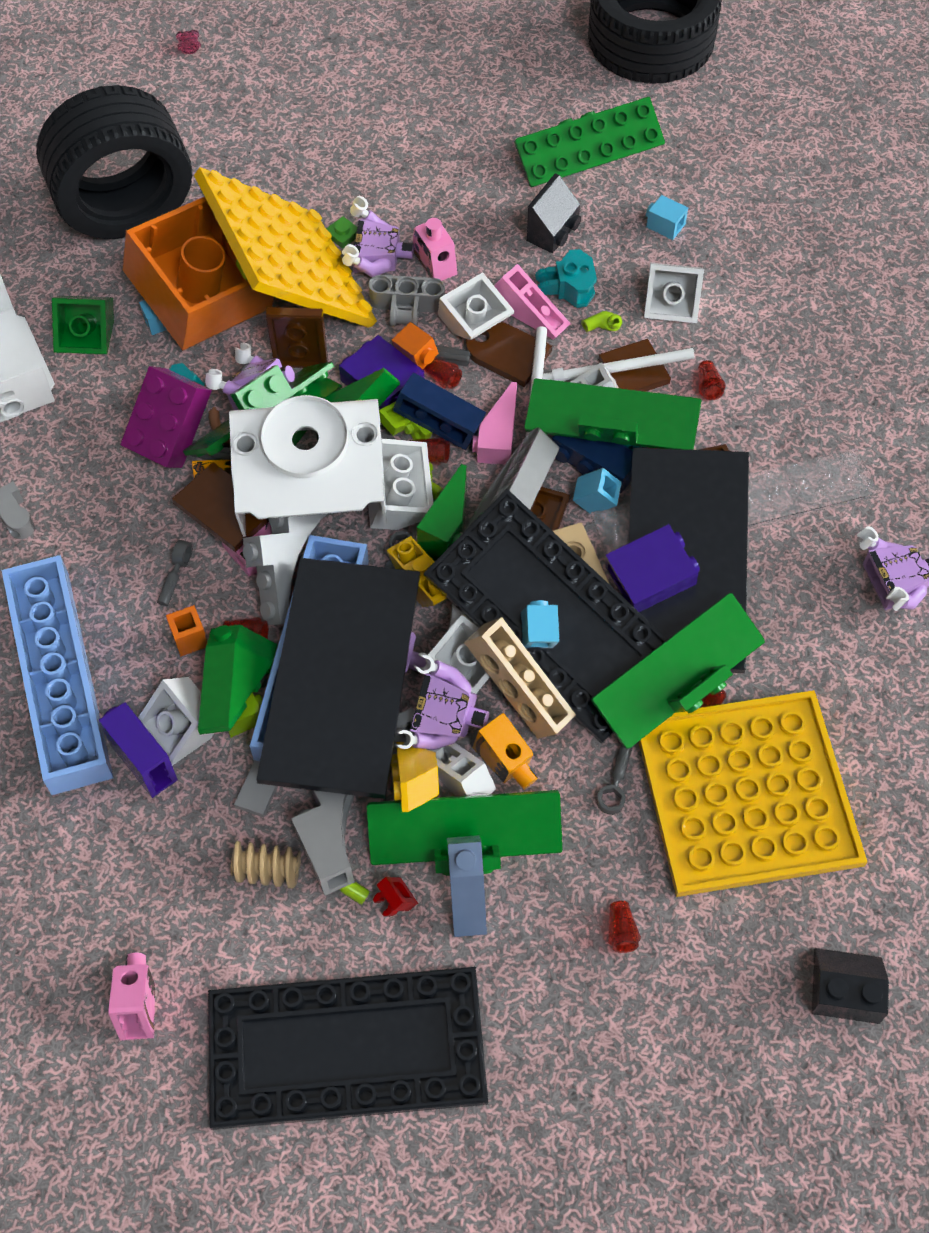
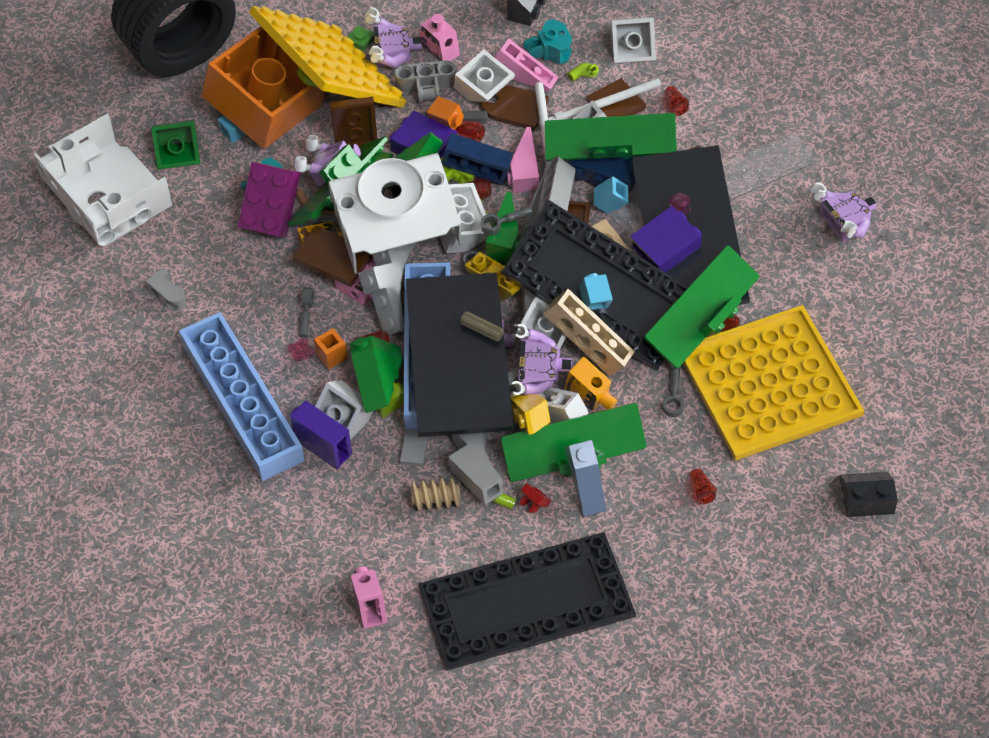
camera: 10 degrees left, 5 degrees down
(153, 630) = (300, 355): none -> clear pink plate
(379, 644) = (482, 326): none -> dark tan axle
(454, 500) = (508, 218): none -> dark grey piece
(681, 521) = (680, 202): none -> clear pink plate

